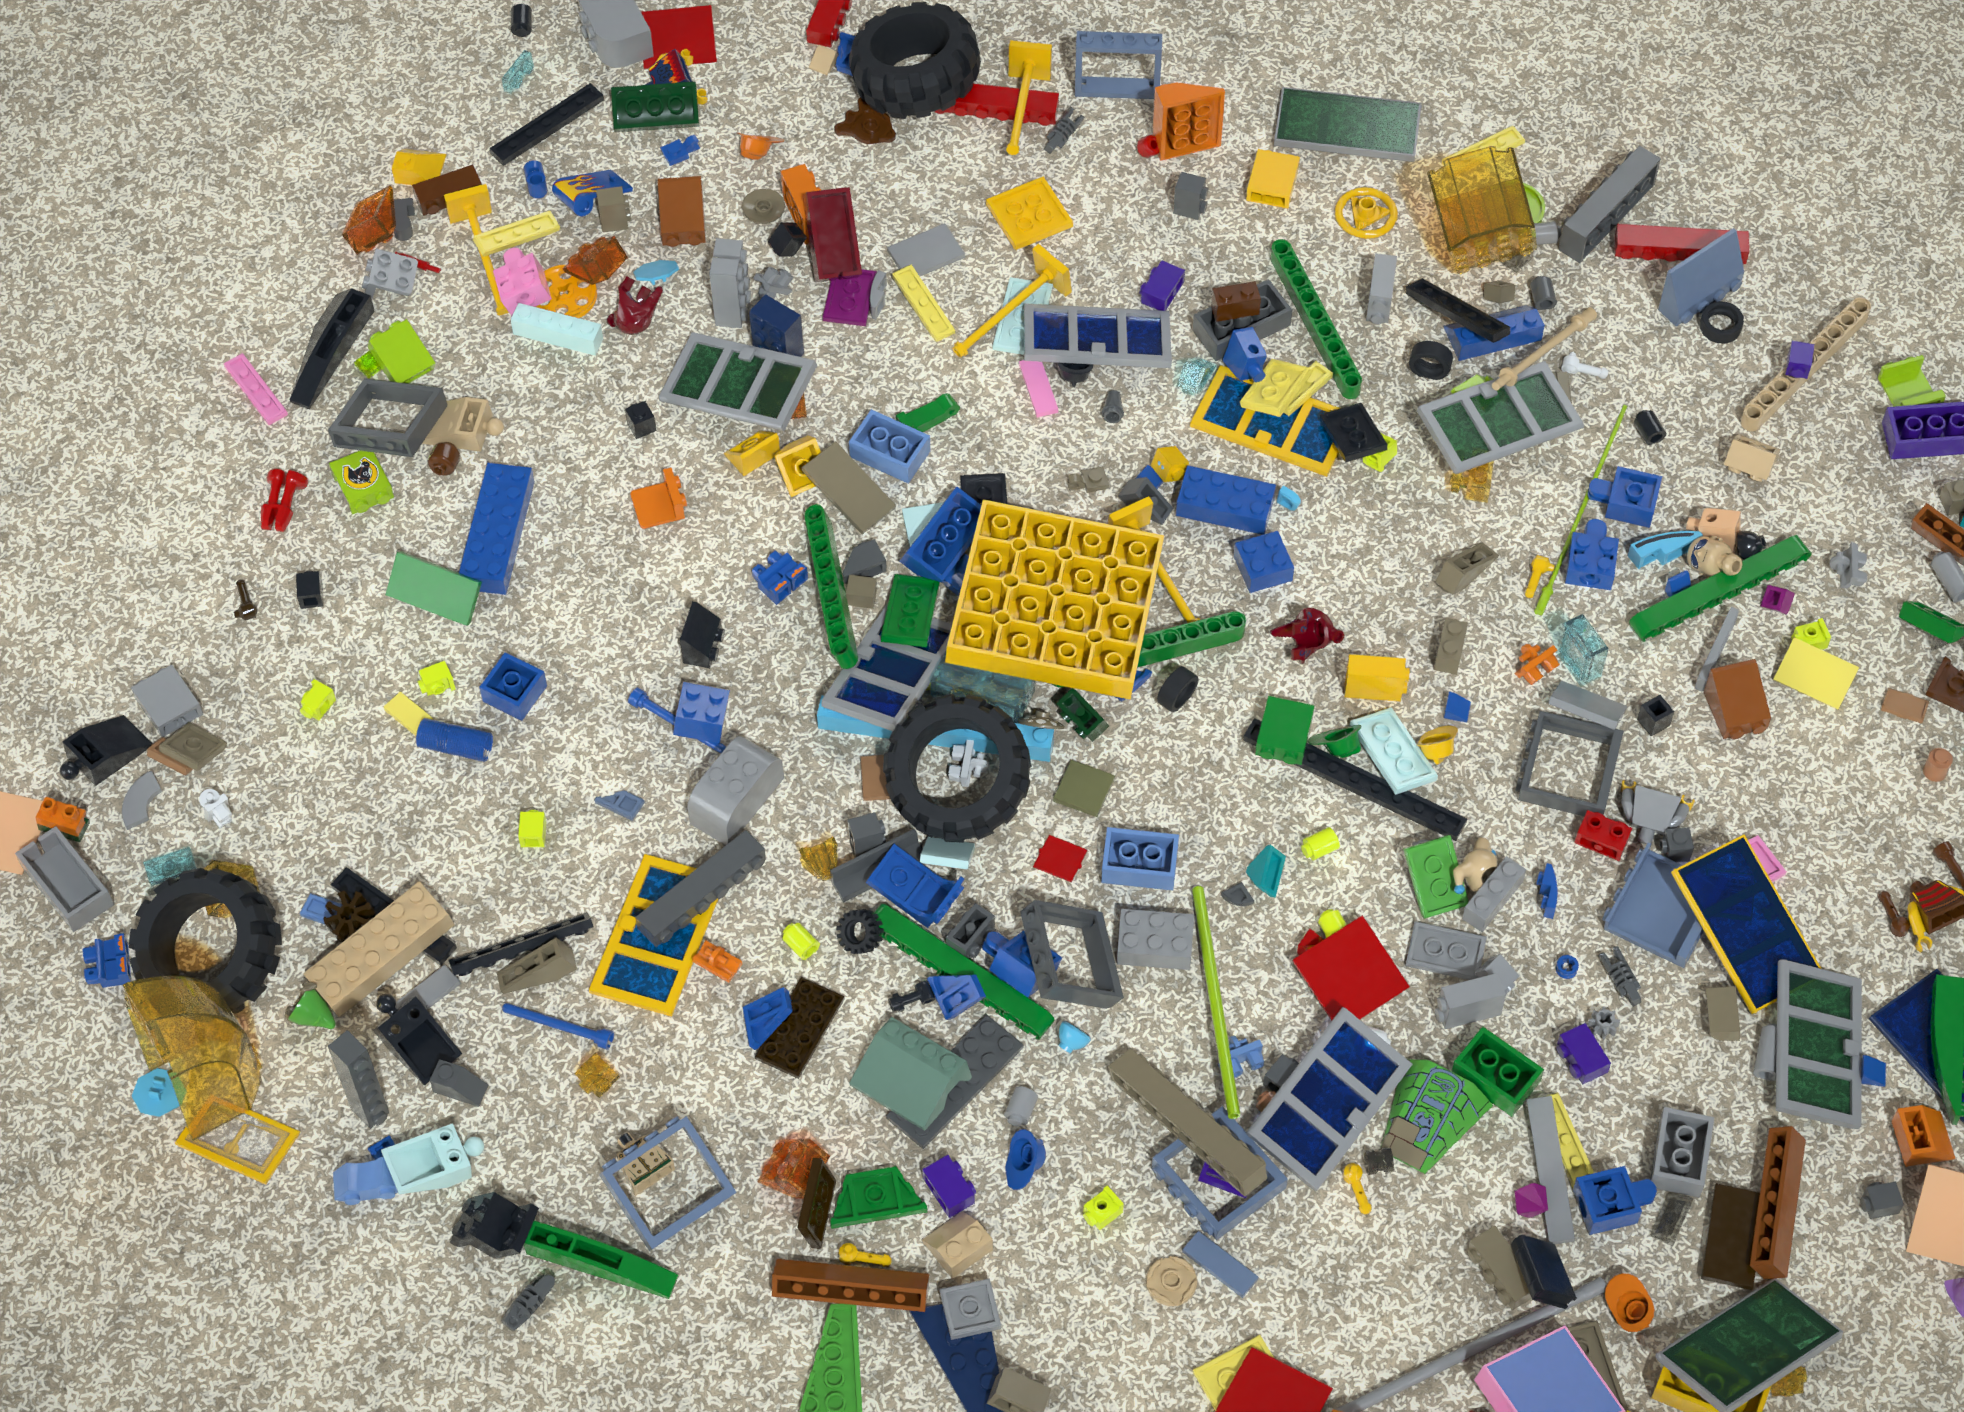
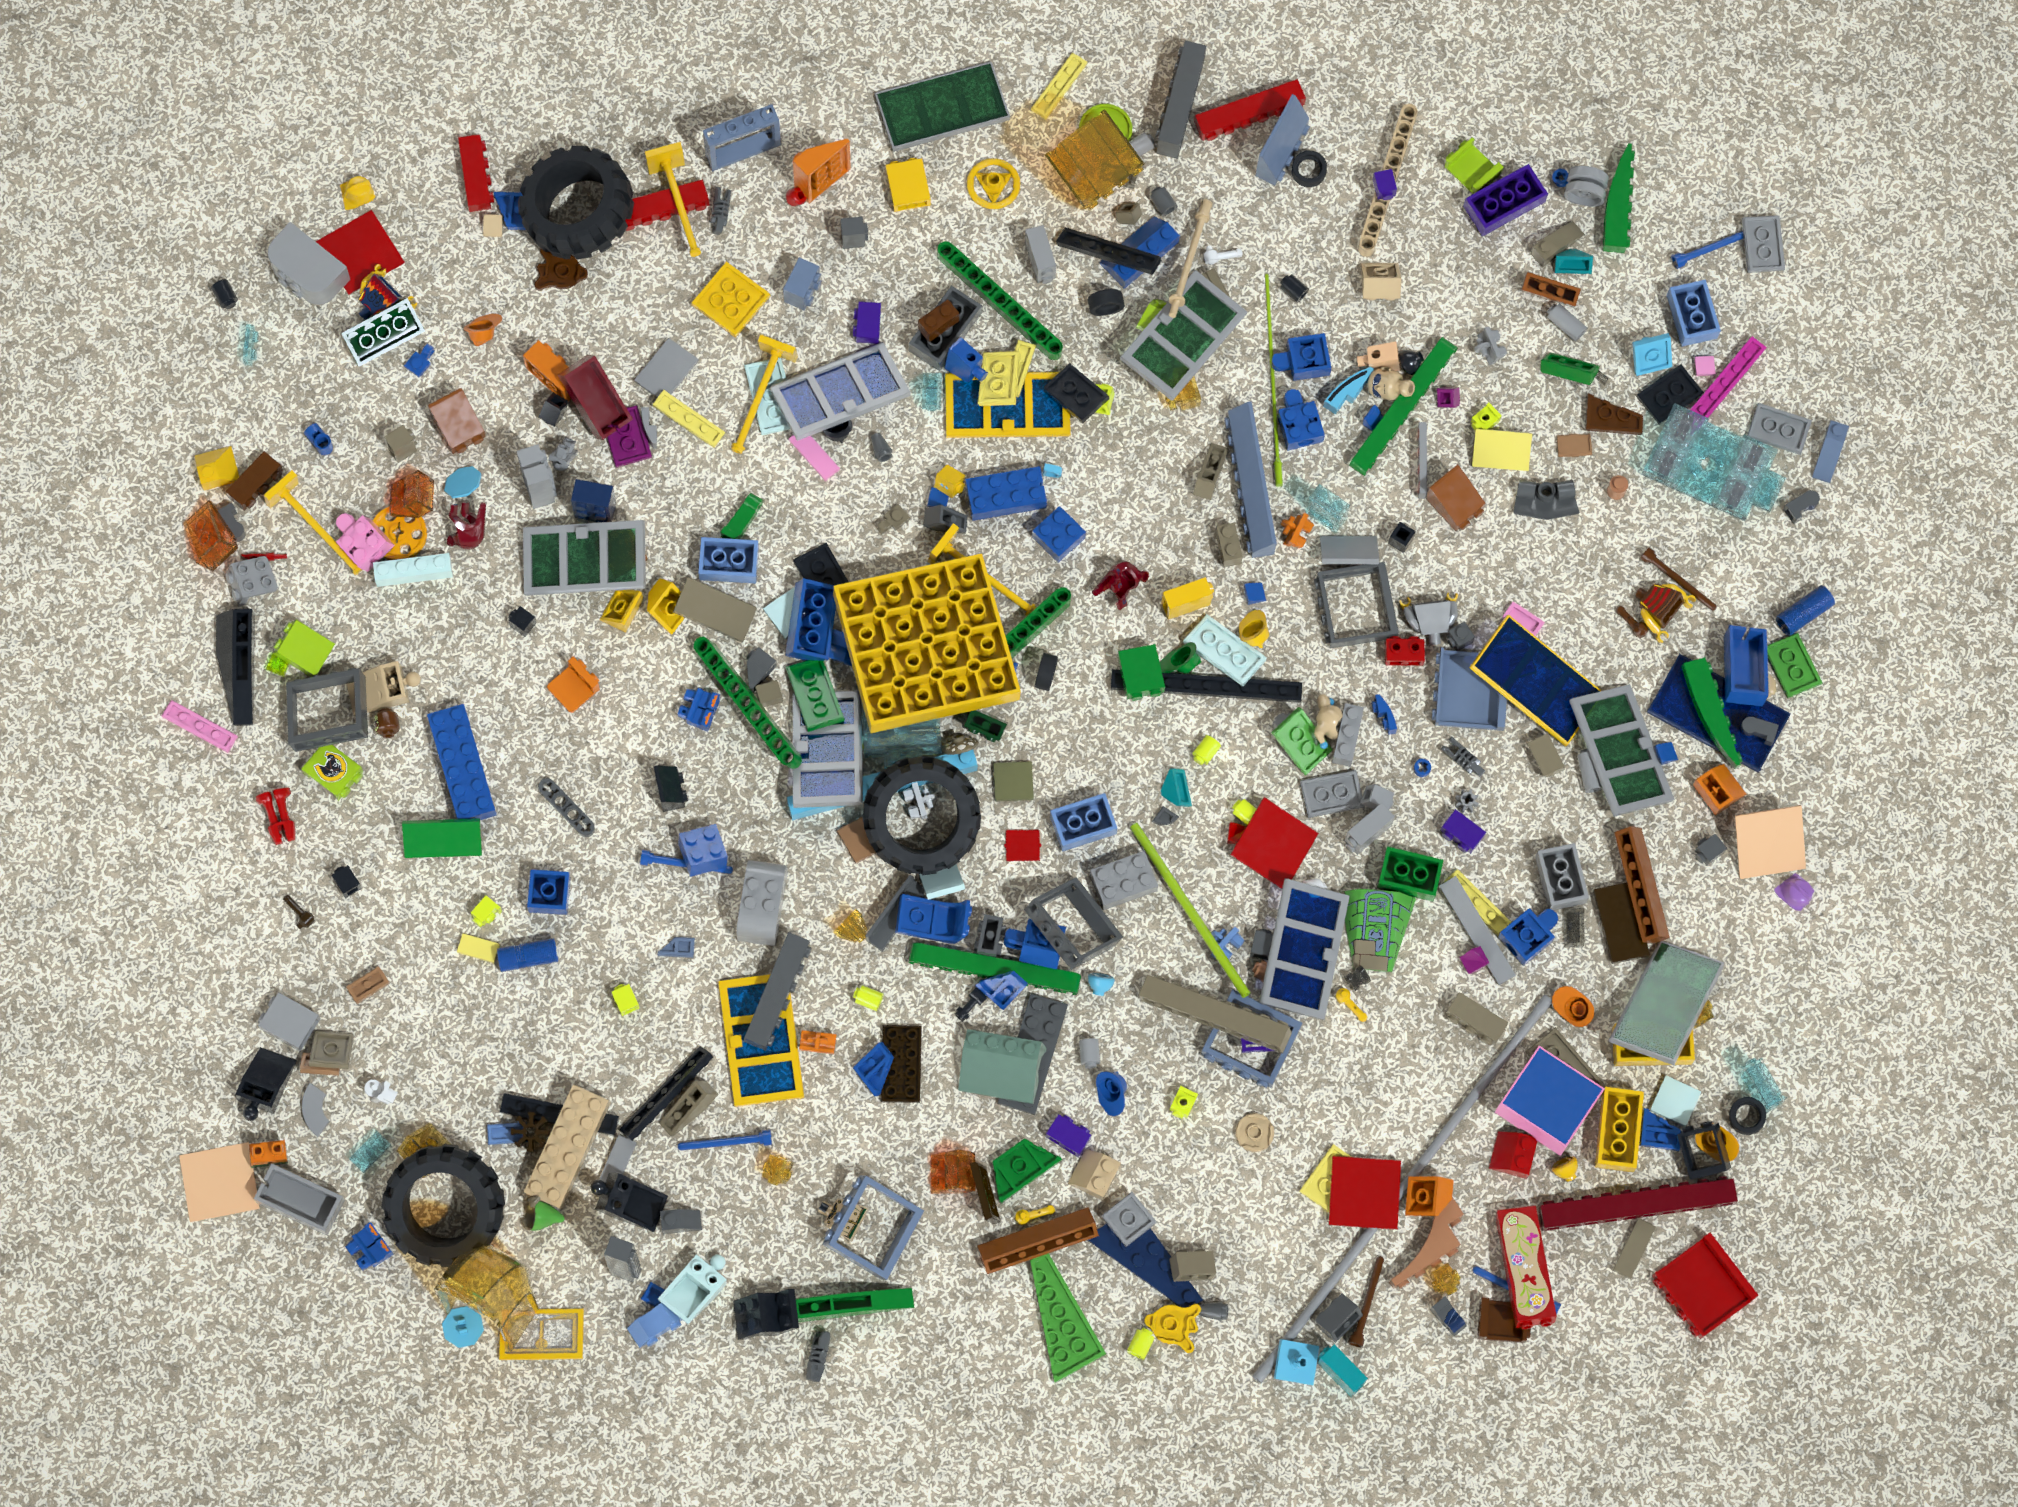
camera: 30 degrees left, 15 degrees up
(270, 700) = (367, 985): none -> medium nougat plate
(317, 700) = (404, 970): neon yellow brick -> none
(516, 233) = (333, 497): light yellow tile -> none
(546, 124) = (299, 383): black plate -> none
(579, 190) = (368, 430): blue door -> none
(583, 616) = (566, 808): none -> dark grey beam
(763, 199) = (514, 377): dark tan dish -> none
(848, 935) = (905, 981): black tyre -> none
(865, 833) = (877, 895): dark grey brick -> none
(1110, 222) = (802, 283): none -> sand blue brick
(1220, 1264) = (1282, 1105): sand blue tile -> none
(1507, 593) = (1251, 481): none -> sand blue slope
(1539, 566) = (1265, 444): yellow piece -> none
(1543, 1271) = (1506, 1011): black piece -> none
(1860, 753) = (1534, 504): none -> dark grey panel

